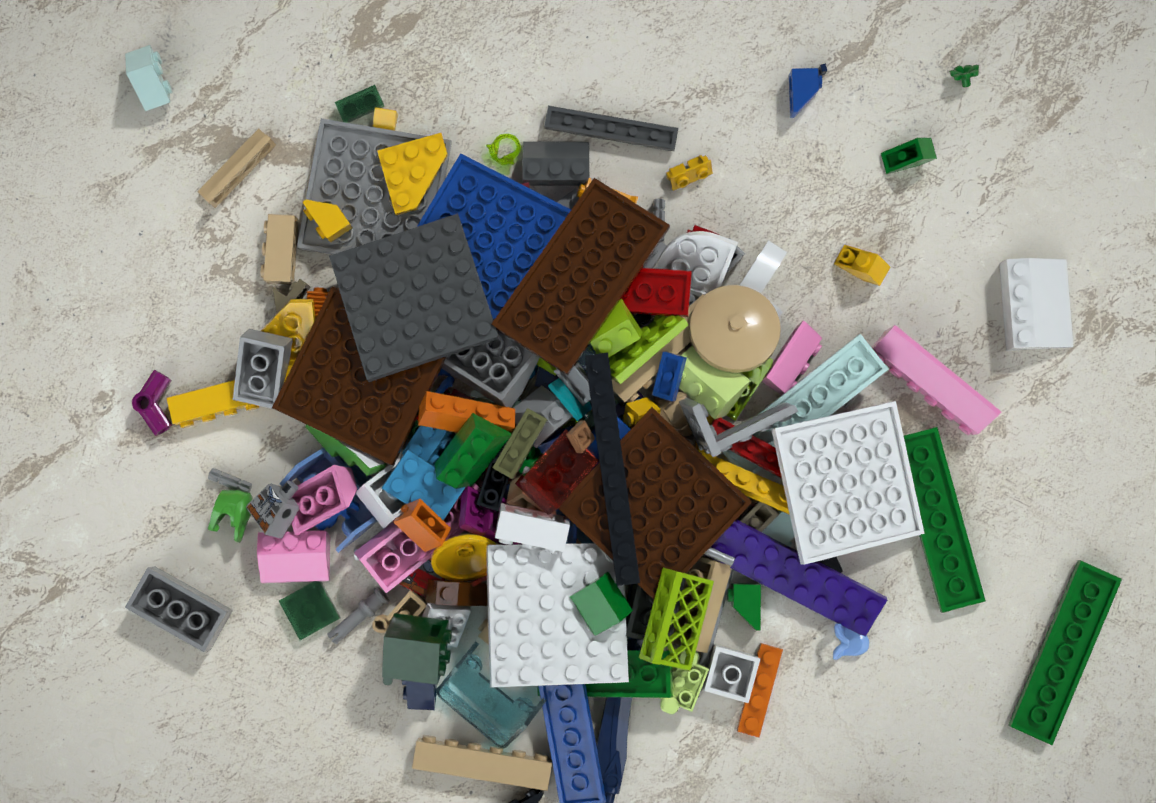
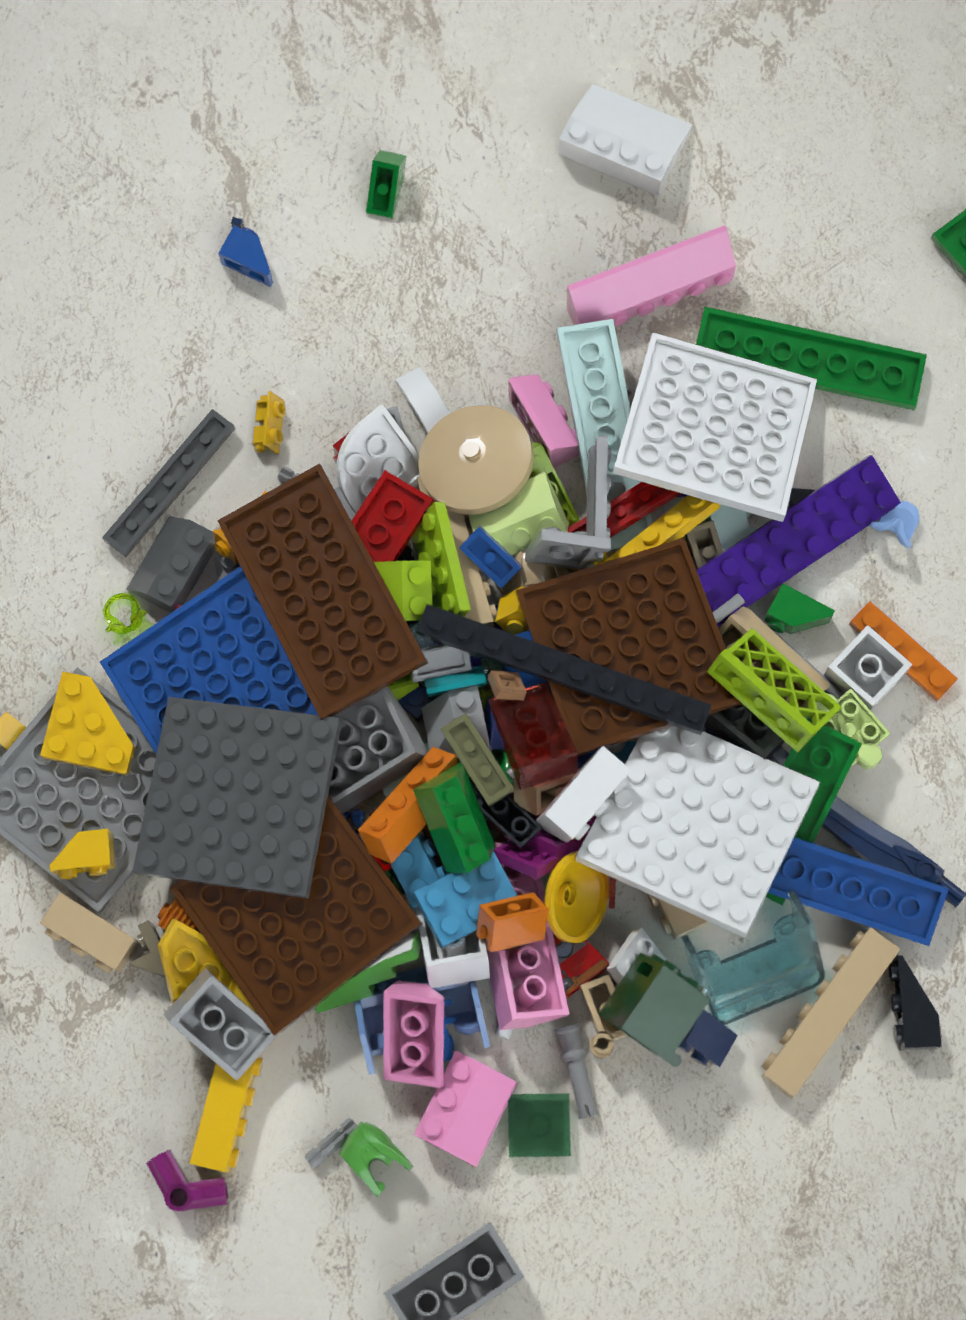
camera: 55 degrees left, 10 degrees down
(274, 508) = (396, 1095): light grey torso -> none
(456, 593) = (612, 932): reddish brown slope -> none
(601, 604) = (713, 764): green slope -> none
(862, 264) = (479, 292): yellow slope -> none
(964, 74) = (330, 81): green plant -> none

